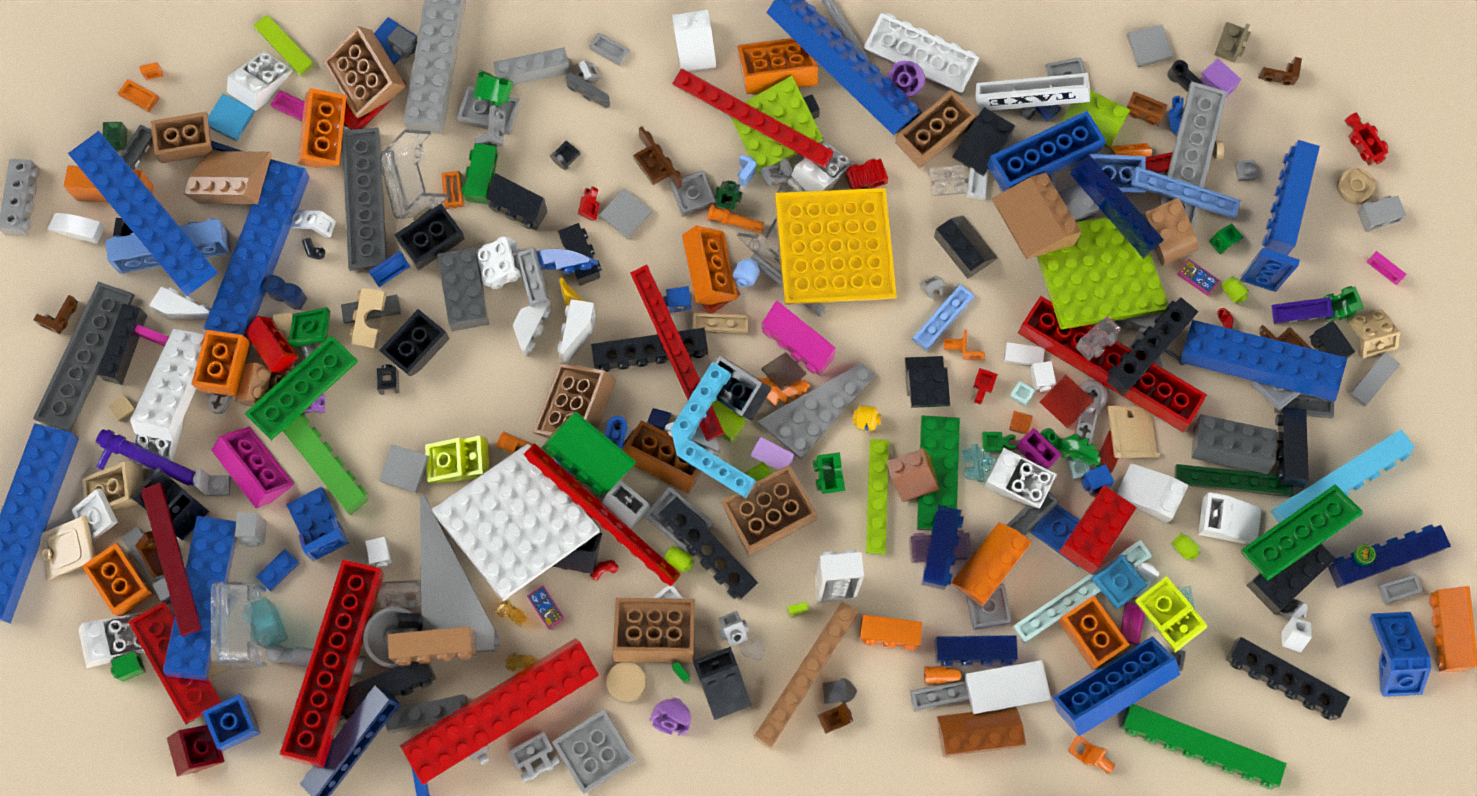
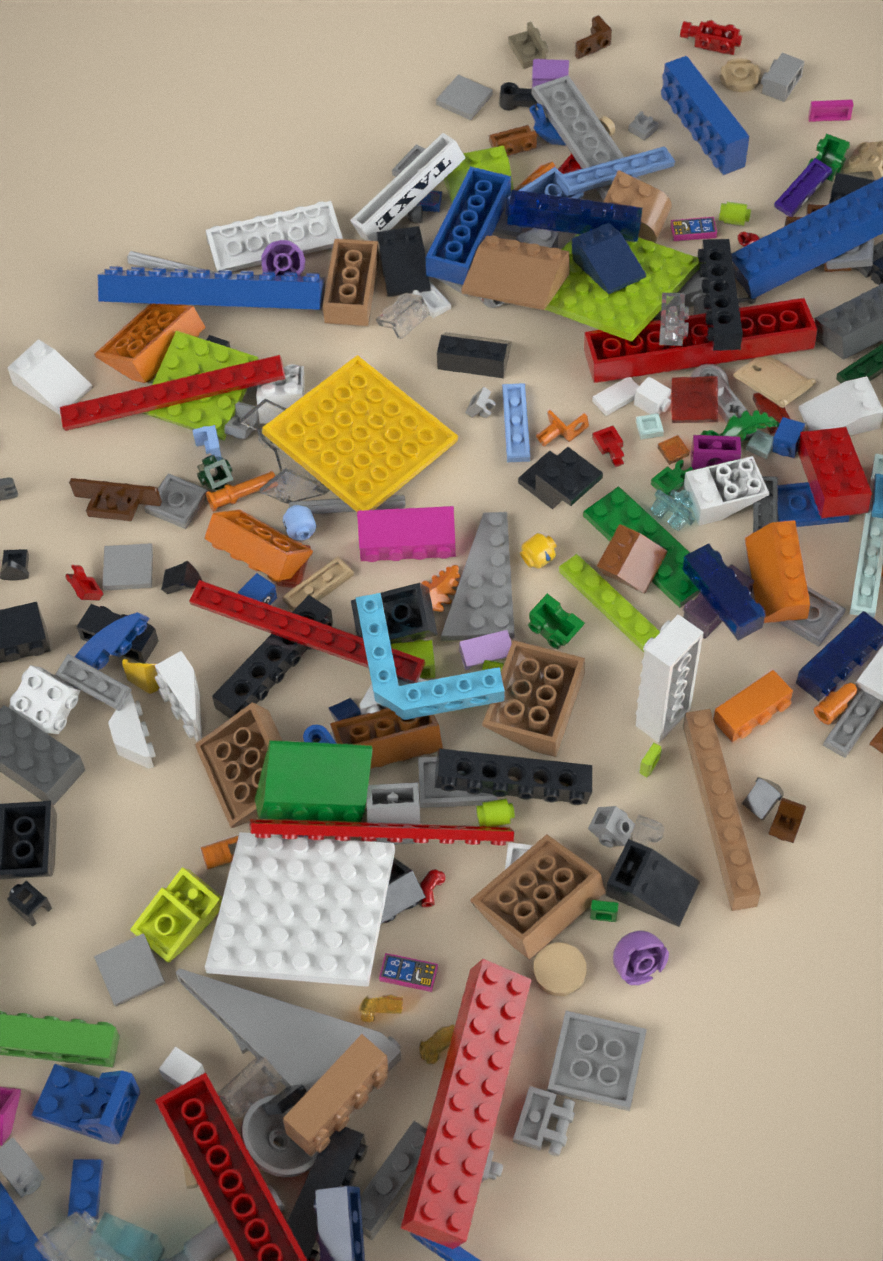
camera: 40 degrees left, 15 degrees down
(646, 249) = (180, 577): none -> black tile
(783, 371) = (422, 571): clear smoke piece -> none
(867, 175) = (326, 361): red brick -> none
(1105, 257) = (607, 258): none -> dark blue slope
(1225, 238) = (683, 185): green bracket -> none
(1269, 269) = (750, 166): blue tile -> none

